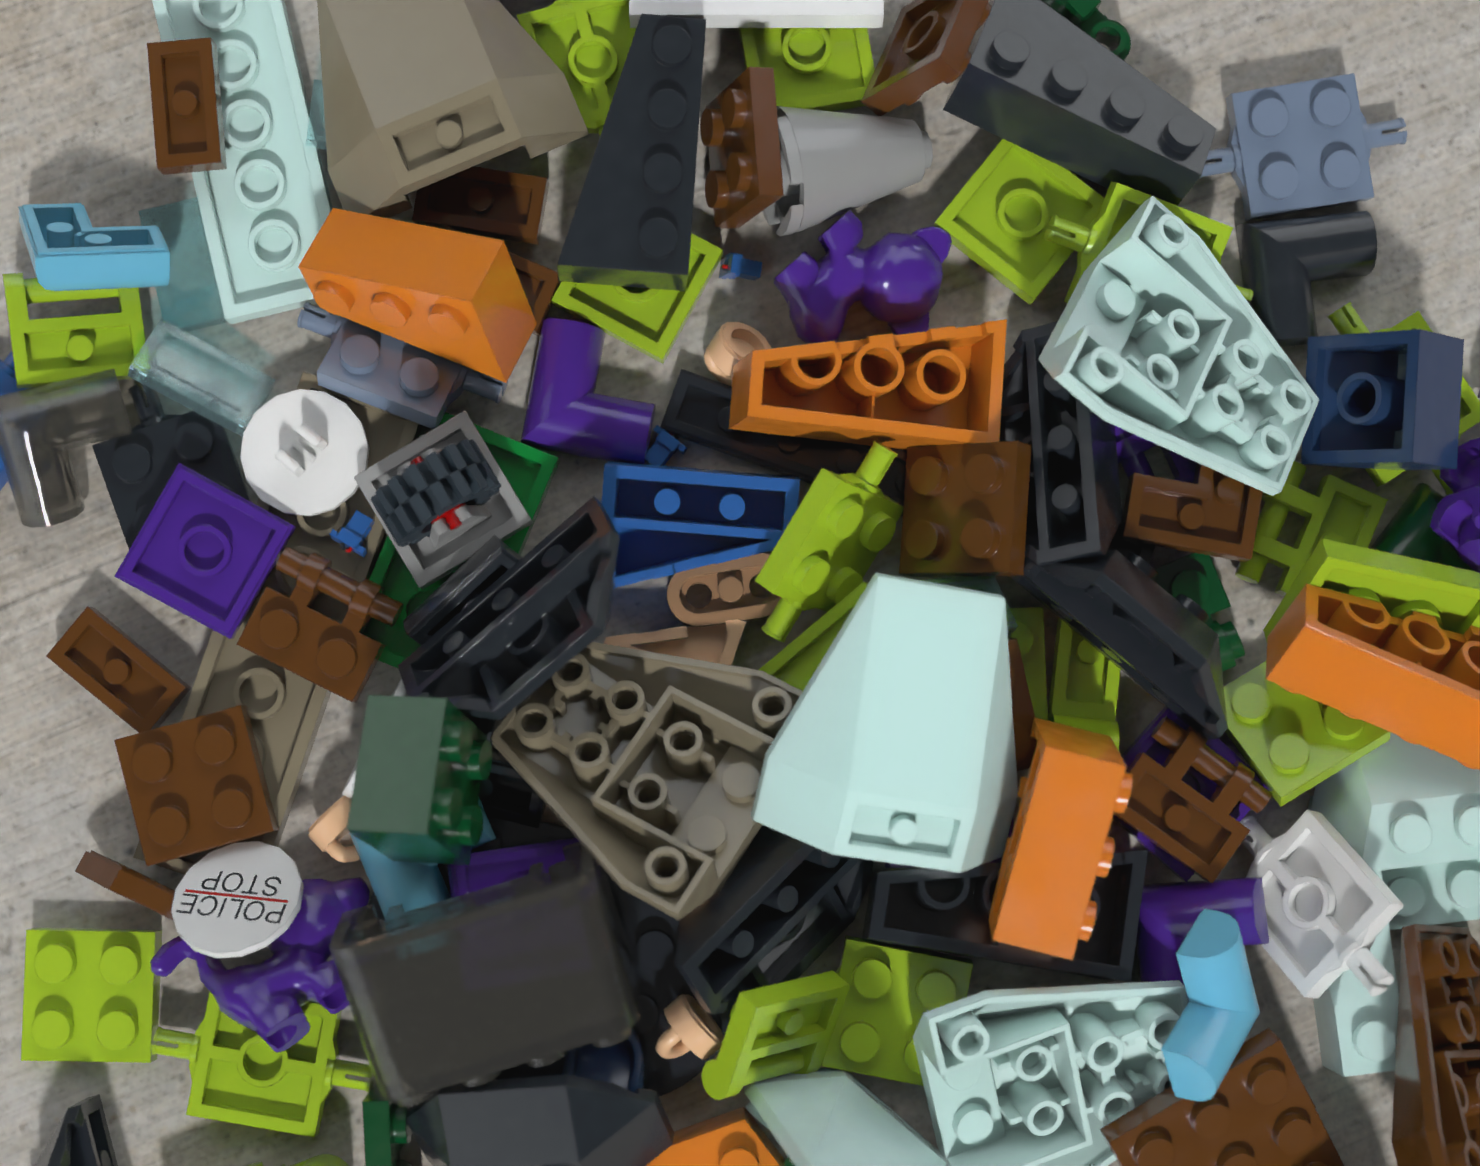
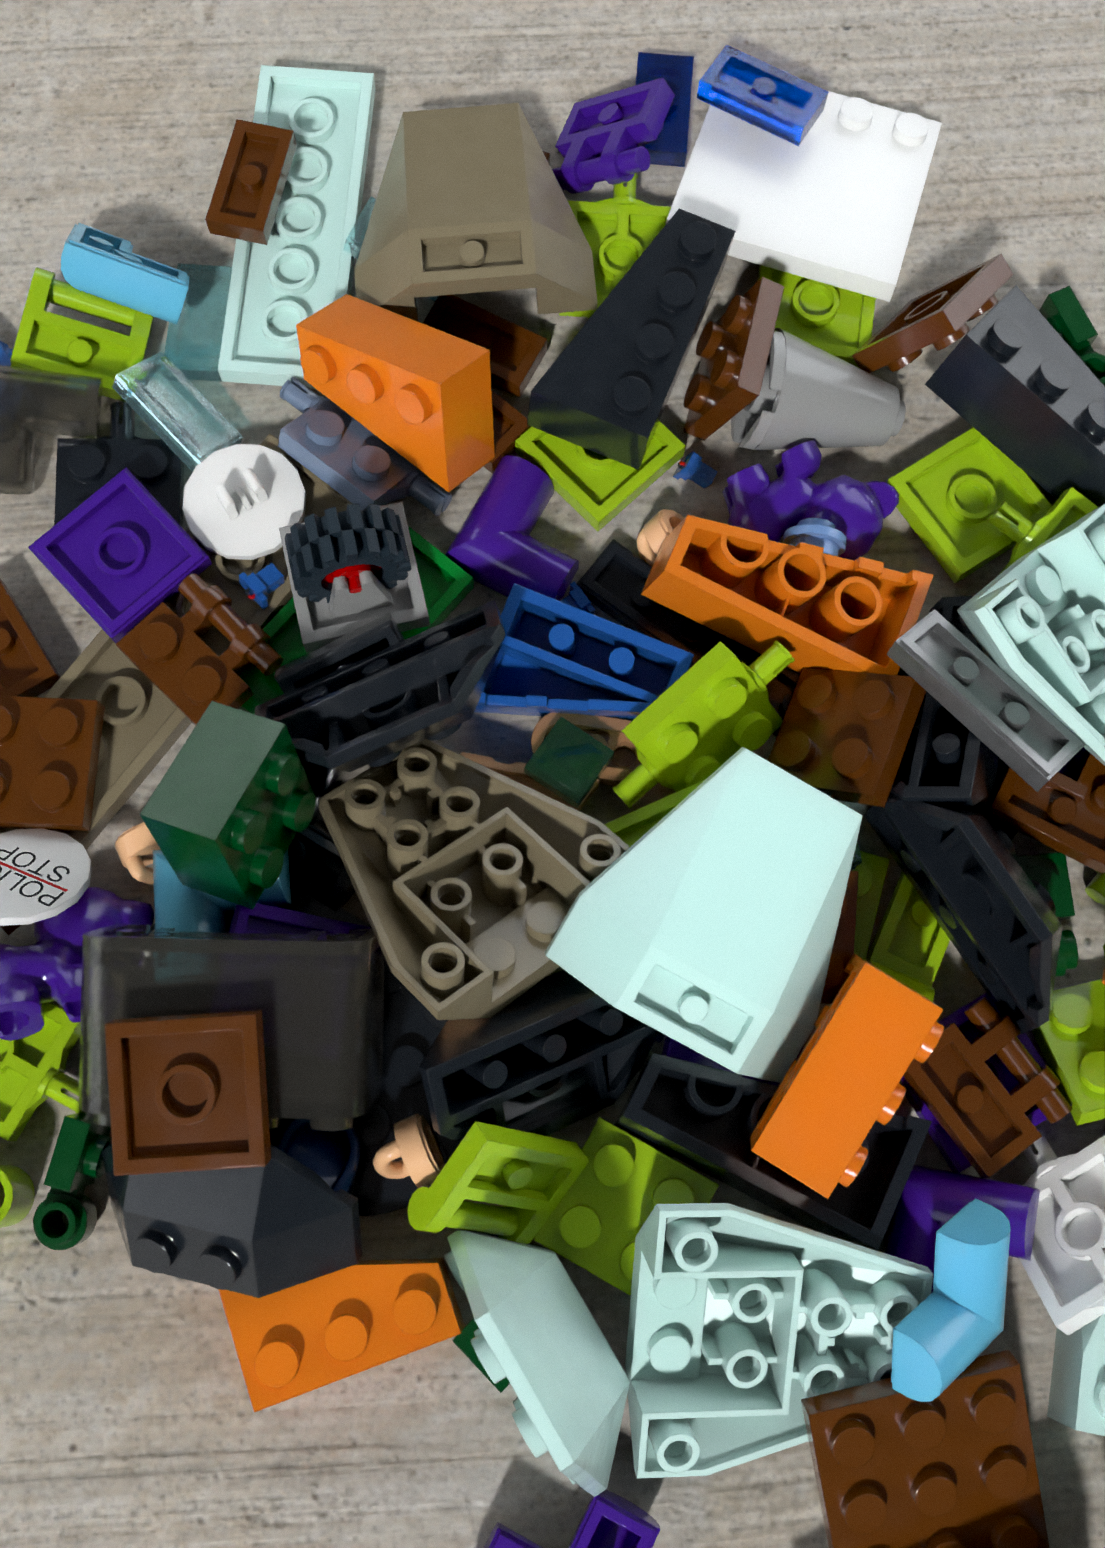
camera: 20 degrees right, 10 degrees down
(480, 1058) = (187, 1093): none -> reddish brown plate
(712, 616) = (569, 762): none -> clear green tile
(881, 318) = (817, 533): none -> medium blue plate
(1085, 445) = (985, 699): none -> flat silver tile

